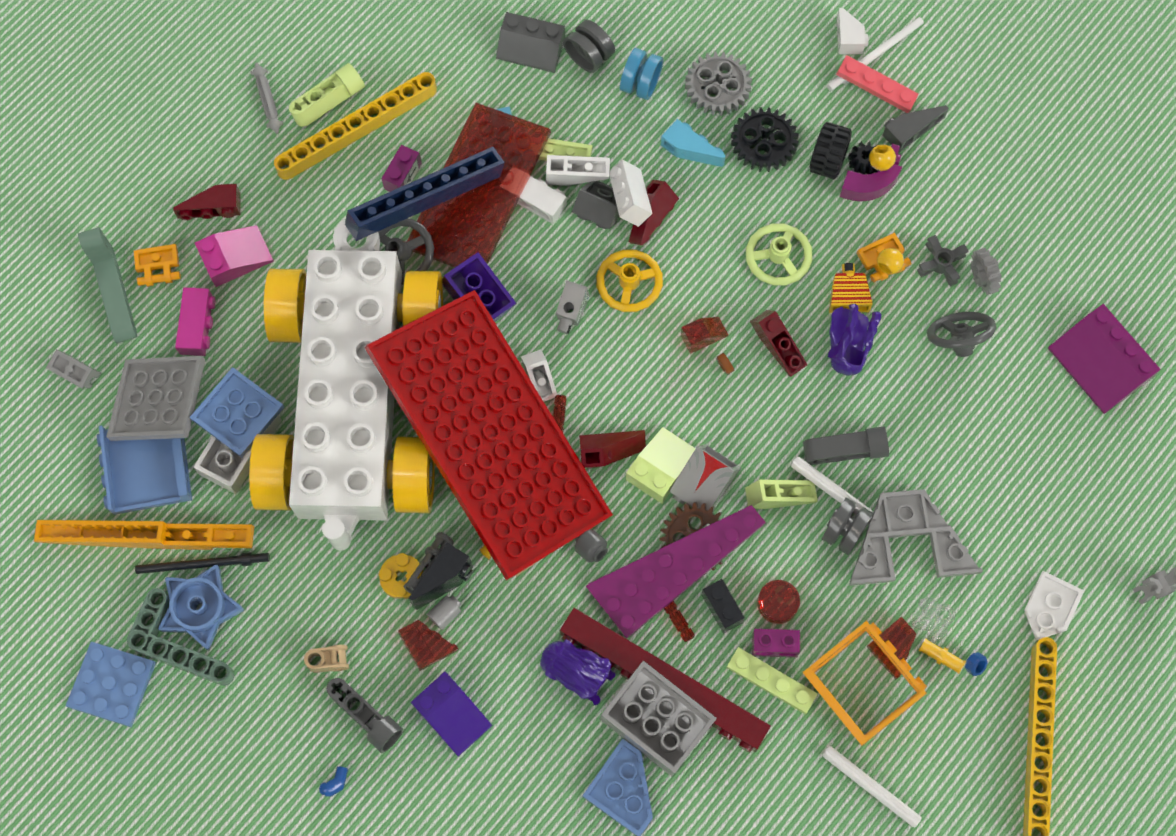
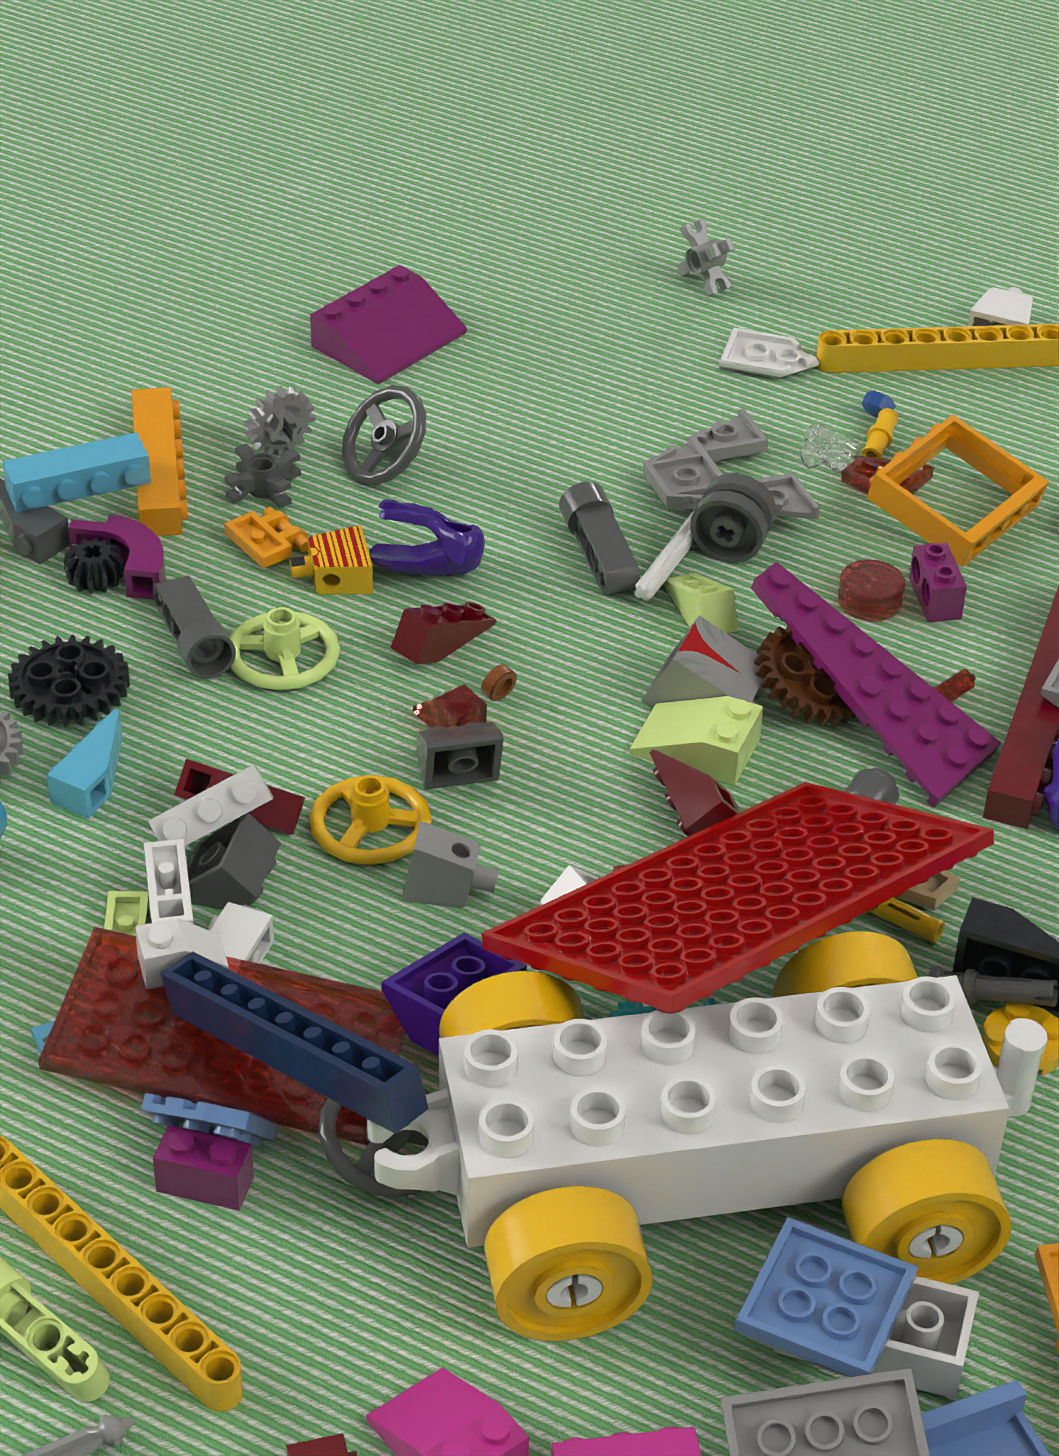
camera: 105 degrees left, 30 degrees down
(416, 164) = (210, 1119): none -> medium blue plate
(517, 162) = (171, 940): none -> white slope
(661, 326) = (459, 754): none -> dark grey slope
(722, 606) = (912, 634): black brick -> none
(772, 680) = (990, 592): yellowish green plate -> none
(800, 205) = (198, 635): none -> dark grey beam
(830, 150) = (93, 584): black tyre -> none
(882, 157) = (104, 520): yellow piece -> none
(890, 261) = (283, 509): yellow piece -> none
(934, 147) = (76, 472): none -> medium azure brick
(966, 202) = (159, 429): none -> light orange brick
(1078, 789) = (1001, 308): none -> white torso

